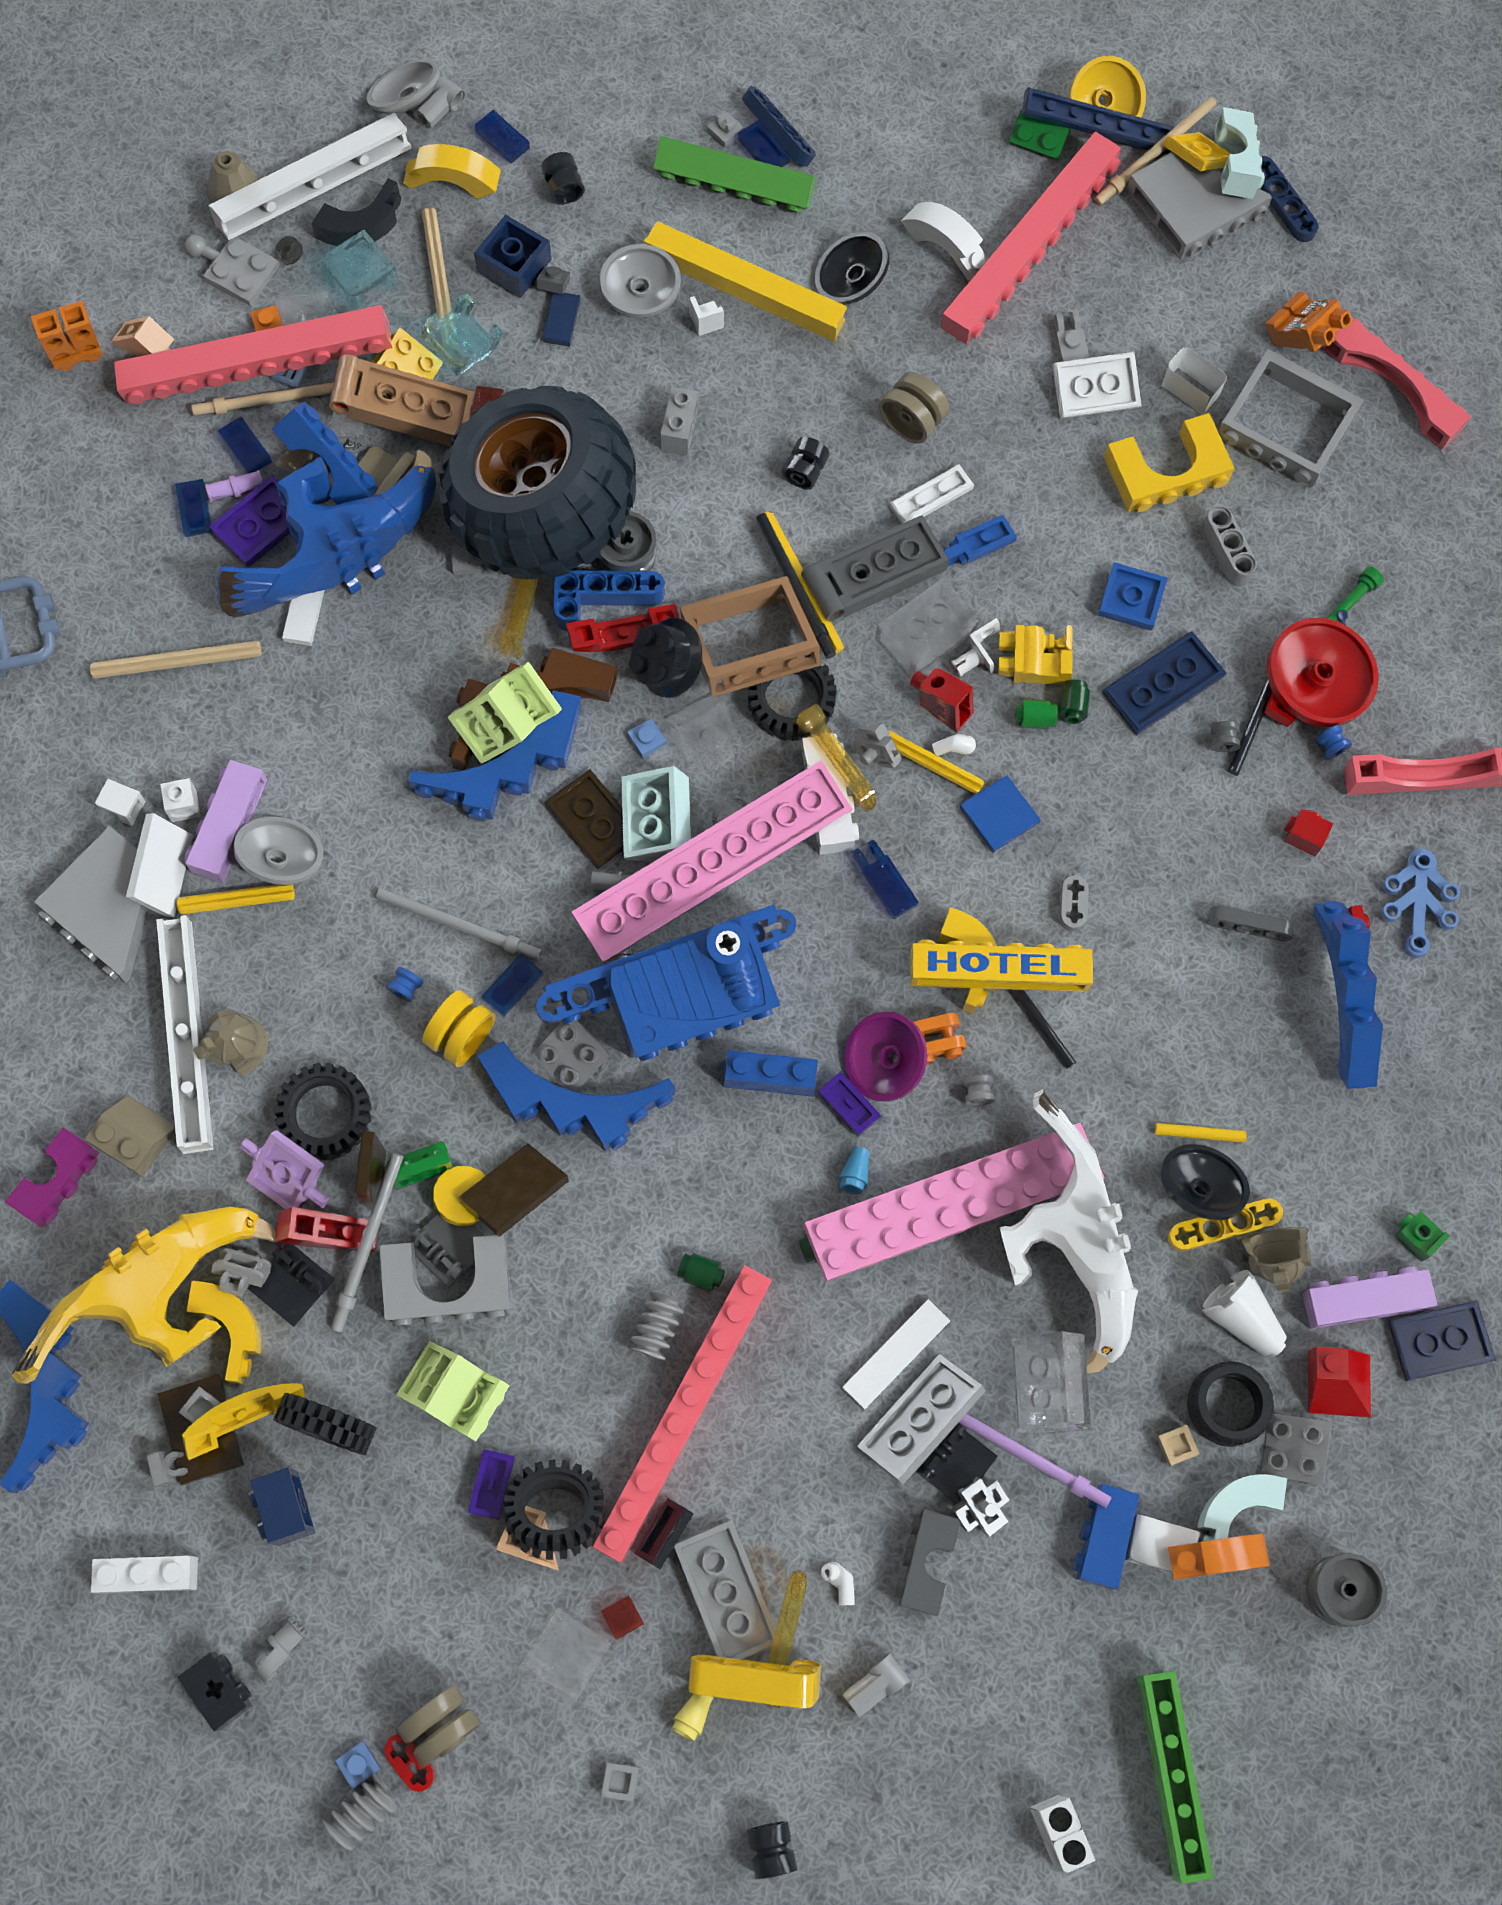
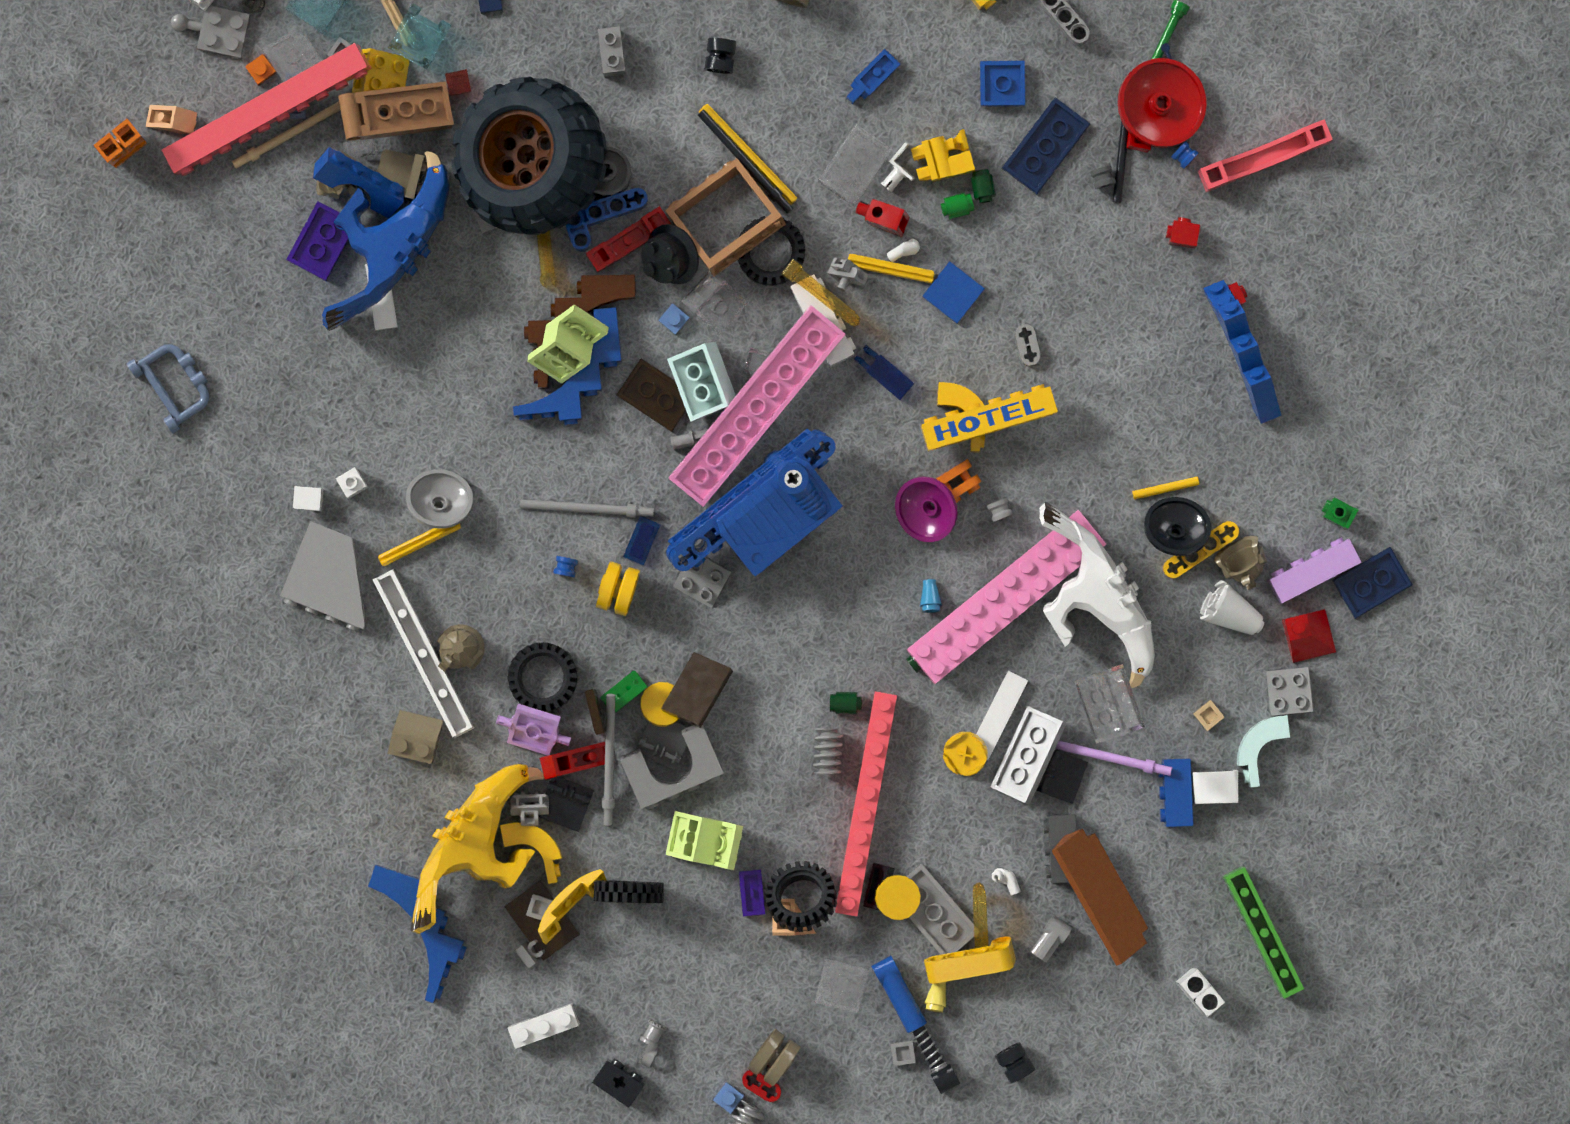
camera: 15 degrees left, 15 degrees up
(41, 1202) = (381, 767): magenta arch -> none
(159, 865) = (358, 538): white tile -> none
(175, 659) = (303, 372): tan axle -> none
(193, 507) = (266, 245): clear blue plate -> none
(227, 813) = (390, 486): lavender brick -> none
(233, 486) = (291, 218): lavender pin -> none
(245, 445) = (286, 182): clear blue plate -> none
(281, 1507) = (619, 954): dark blue brick -> none
(567, 1110) = (742, 615): blue arch -> none
(622, 1617) = (869, 950): clear red plate -> none
(649, 1741) = (914, 1022): none -> piece
(684, 1554) = (897, 897): none -> yellow tile
(770, 1073) = (848, 546): blue brick -> none
(837, 1390) = (965, 753): none -> yellow tile
(849, 1104) = (910, 549): dark purple plate -> none
(885, 561) = (809, 119): dark grey hinge -> none
(932, 494) = (824, 47): white tile -> none
(965, 1644) = (1101, 894): none -> dark orange slope
(984, 1508) = (1088, 802): piece -> none
(1044, 1027) = (1036, 449): black bar -> none
(1219, 1556) = (1256, 782): orange arch -> none
(1255, 923) = (1167, 318): dark grey beam -> none
(1255, 1384) = (1260, 676): black tyre -> none
(1365, 1587) = (1334, 783): dark grey wheel -> none
(1421, 898) = (1279, 257): medium blue plant -> none

